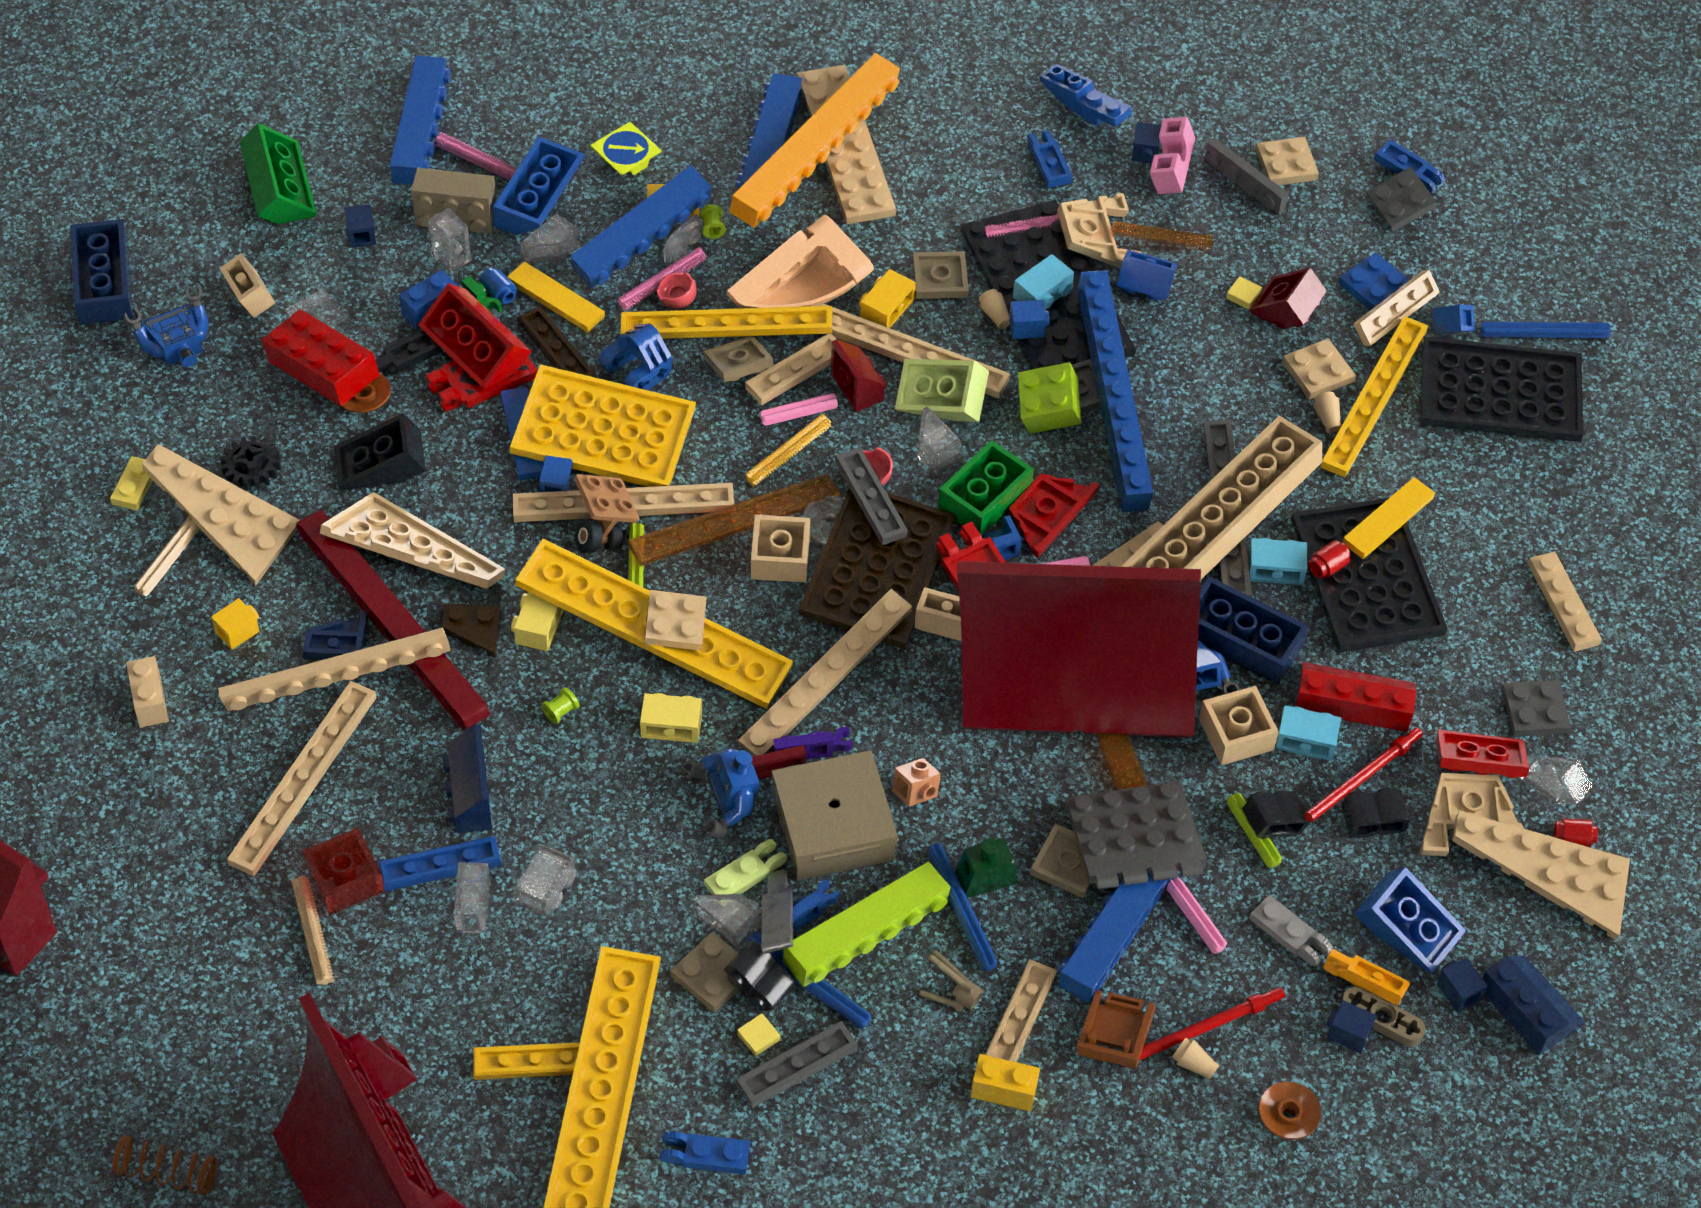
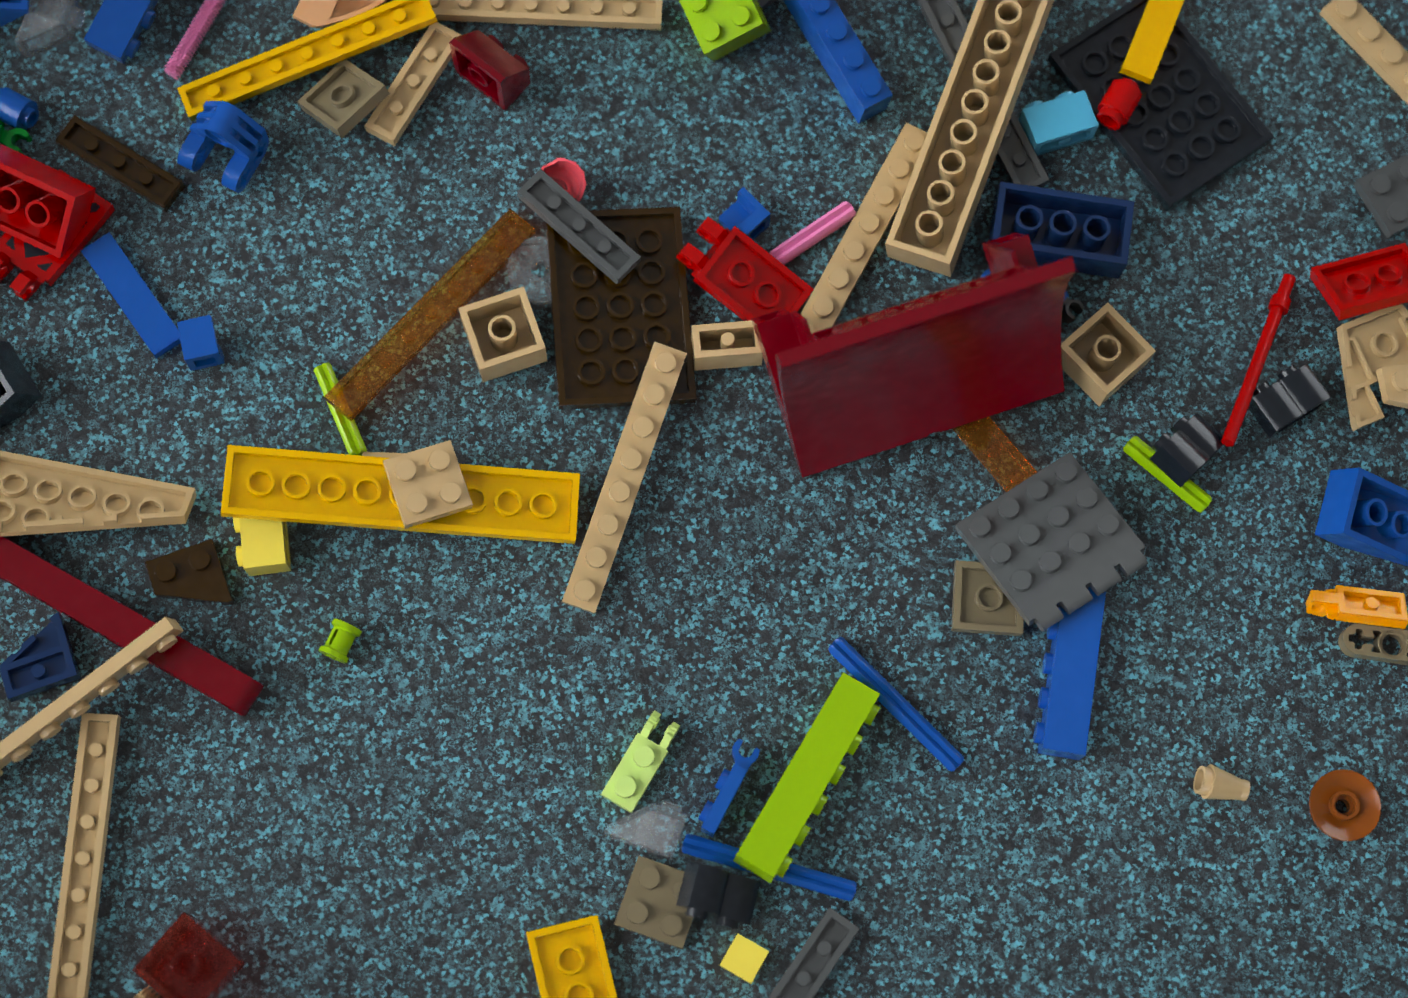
camera: 25 degrees left, 20 degrees up
(437, 863) = (292, 899): blue tile -> none
(468, 782) = (280, 789): dark blue slope -> none
(472, 897) = (352, 932): clear brick -> none
(544, 880) = (424, 873): clear brick -> none
(556, 297) = (87, 93): yellow tile -> none
(603, 427) = (224, 253): yellow plate -> none
(607, 503) = (280, 363): medium nougat plate -> none
(646, 500) = (291, 343): tan plate -> none
(671, 717) = (473, 603): light yellow brick -> none
(677, 290) = (229, 31): coral hair -> none
(732, 783) = (582, 663): blue torso -> none
(776, 760) = (618, 613): dark red tile -> none
(777, 913) = (707, 812): flat silver piece -> none
(788, 449) = (451, 192): yellow axle -> none
(798, 409) = (440, 135): bright pink axle -> none
(816, 743) = (649, 570): dark purple plate -> none
(834, 815) = (713, 655): dark tan container -> none
(916, 782) = (784, 574): nougat brick -> none
(936, 442) = (616, 118): clear slope -> none
(947, 387) = (595, 47): yellowish green slope -> none
(966, 992) = (947, 809): dark tan plant -> none
(985, 487) = (700, 160): green brick -> none
(986, 867) = (905, 650): dark green torso -> none
(1005, 1082) = (1036, 905): yellow brick -> none
(1022, 1011) = (1014, 811): tan tile -> none
(1048, 509) = (778, 156): red wing -> none
(1118, 1026) = (1124, 779): dark orange container -> none
(1196, 915) = (1154, 609): bright pink axle -> none
(1253, 1004) = (1253, 690): red bar -> none
(1290, 930) = (1253, 581): light grey hinge -> none
(1308, 732) = (1179, 328): medium azure brick -> none
(1350, 1026) = (1366, 675): dark blue brick -> none
(1356, 696) = (1208, 258): red slope -> none

